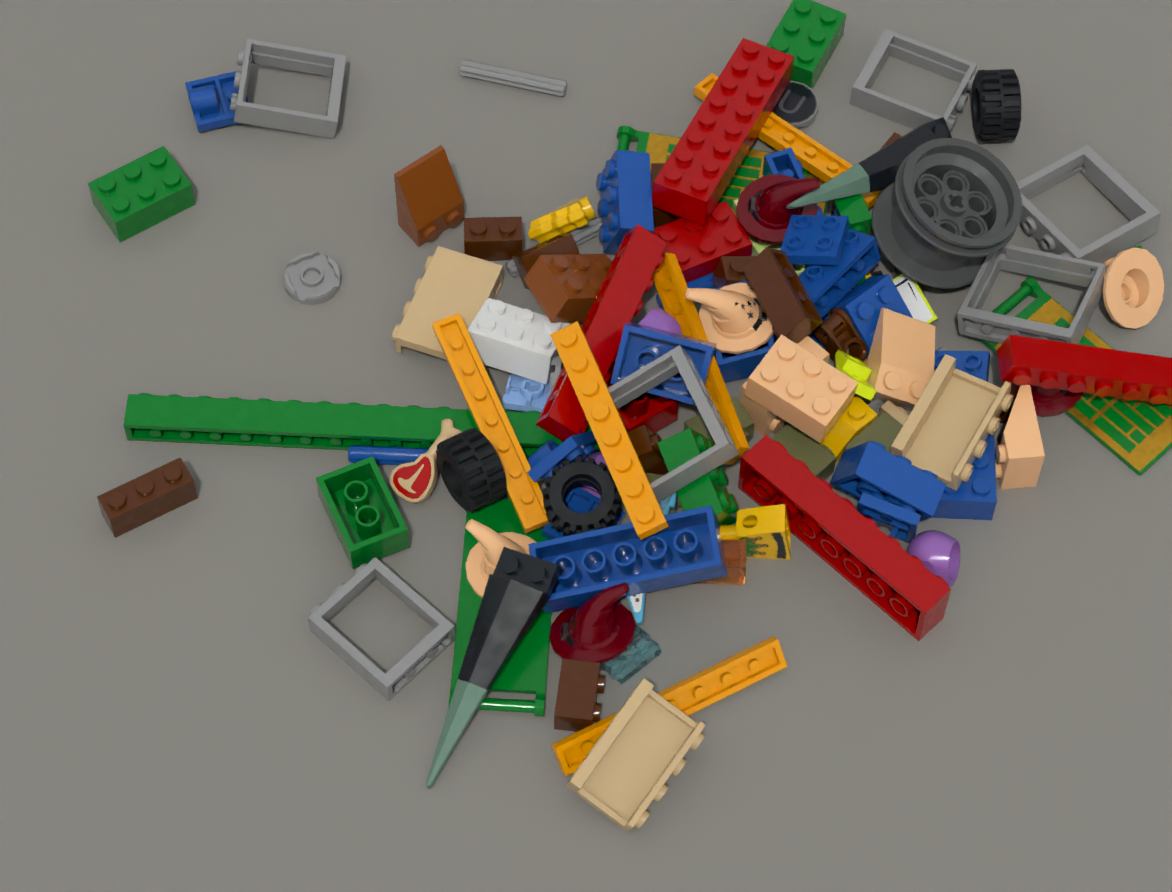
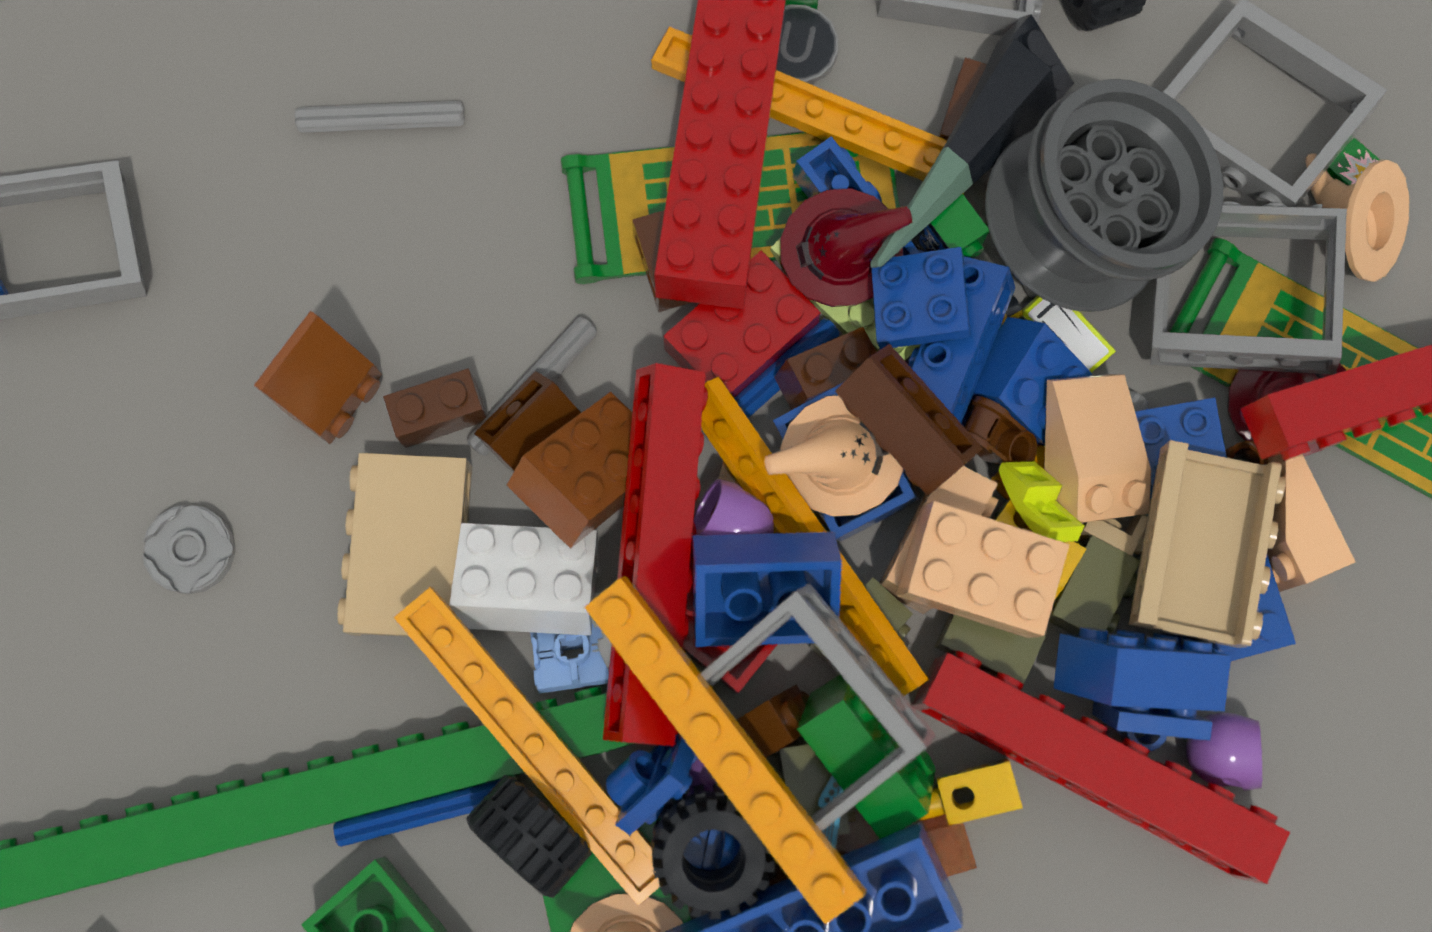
camera: 20 degrees left, 20 degrees up
(417, 479) = (452, 852): tan piece -> none
(562, 220) = (530, 343): yellow rock -> none
(624, 197) = (615, 299): blue brick -> none

